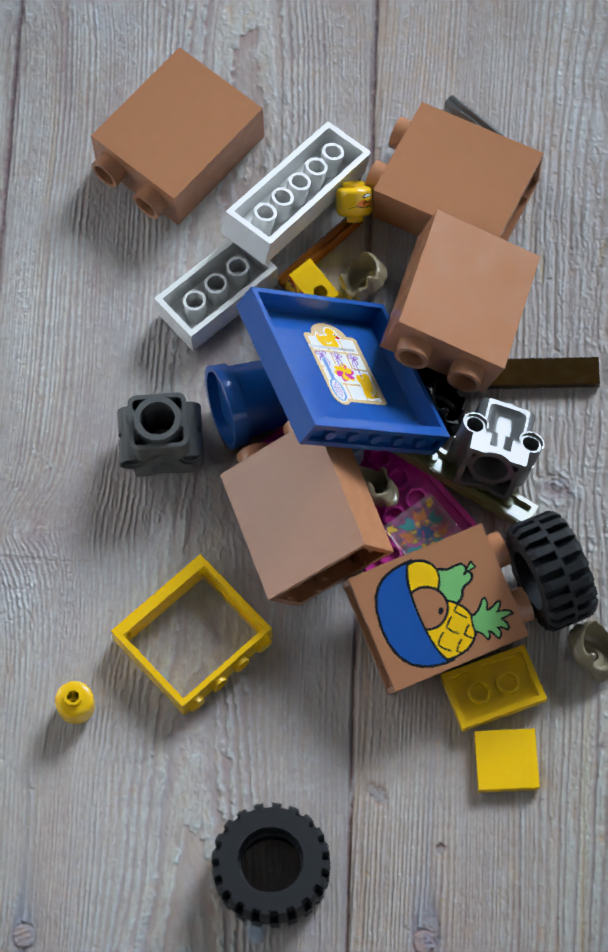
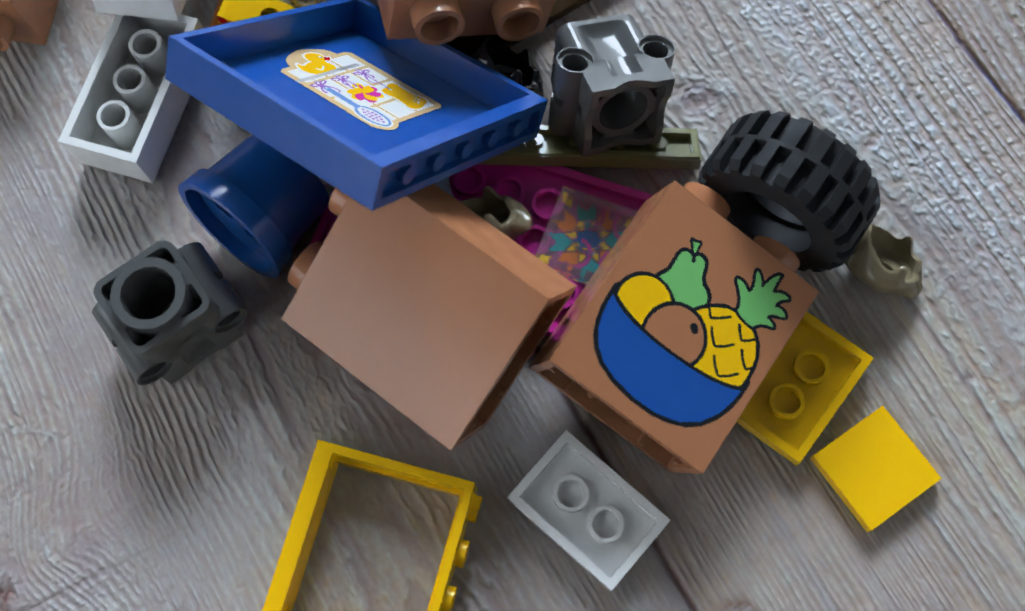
camera: 30 degrees left, 5 degrees up
(326, 683) = (588, 510): none -> white plate

